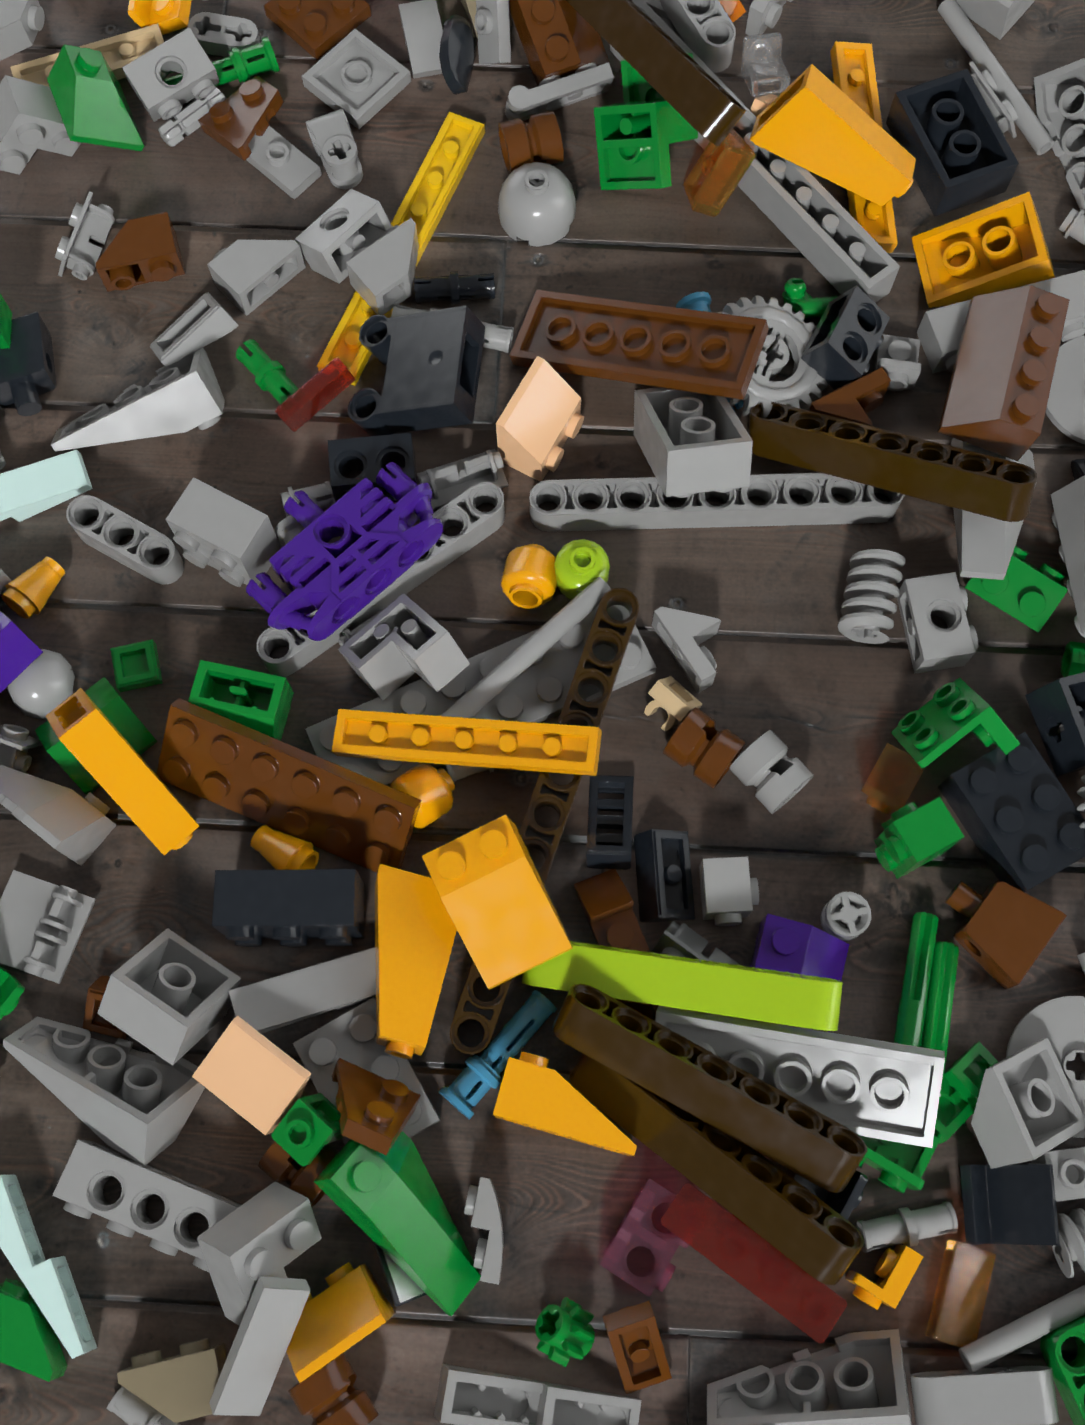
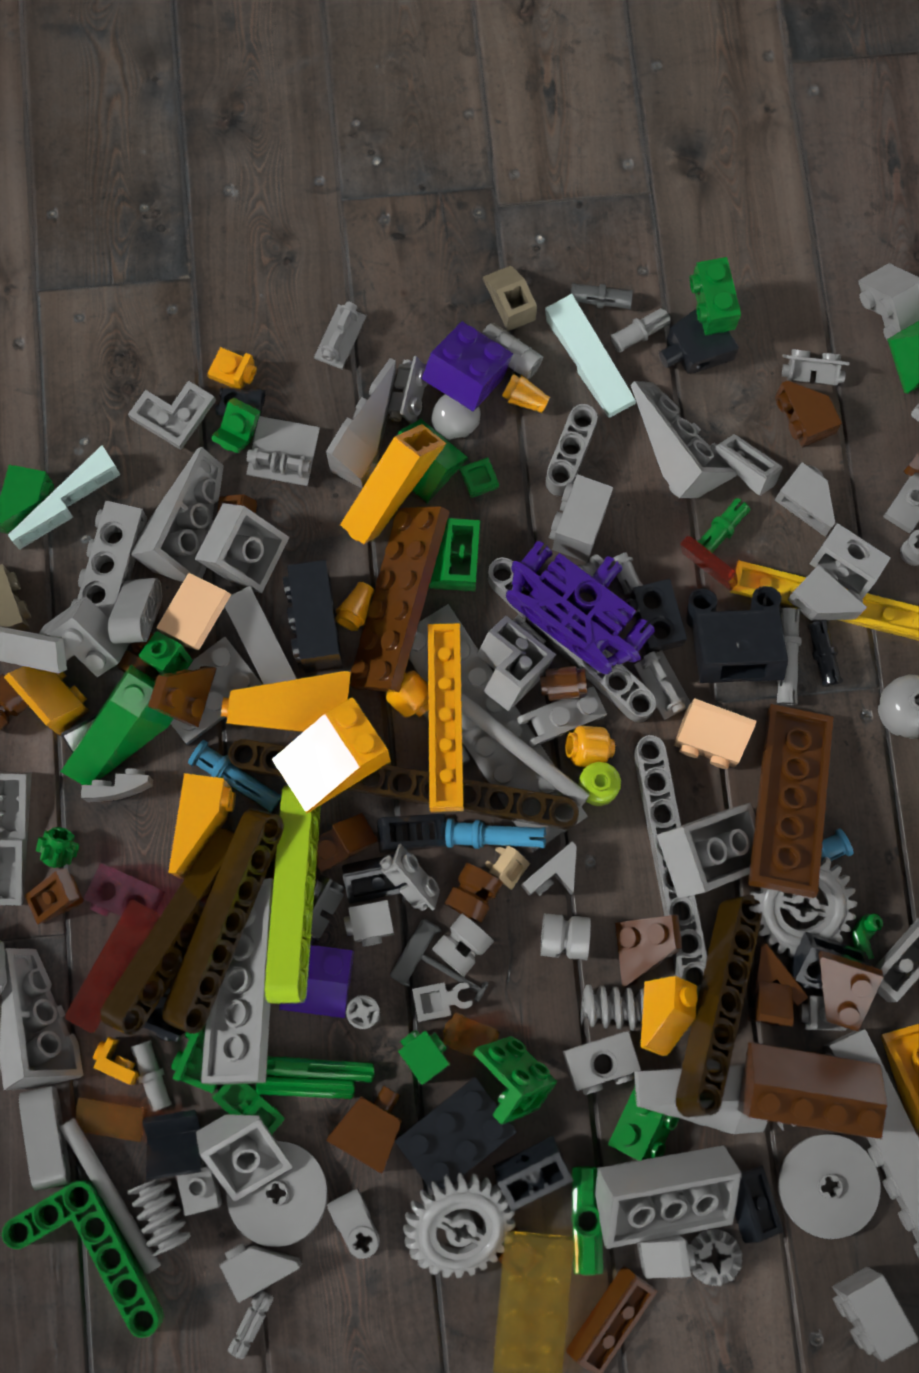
camera: 80 degrees right, 5 degrees up
(233, 1167) = (135, 611): none -> light grey beam
(442, 589) = (564, 683): none -> reddish brown brick
(484, 601) = (564, 716): none -> light grey hinge
(627, 729) = (479, 834): none -> dark azure pin
(689, 818) = (420, 888): none -> light grey hinge
(769, 839) = (415, 951): none -> dark grey piece
(774, 641) = (565, 936): none -> light grey wheel
(795, 545) = (645, 945): none -> reddish brown wing
(839, 820) = (434, 1001): none -> light grey plate
(880, 316) = (847, 989): none -> wing
(889, 523) = (667, 1013): none -> light orange slope
(891, 402) = (773, 1005): none -> reddish brown slope

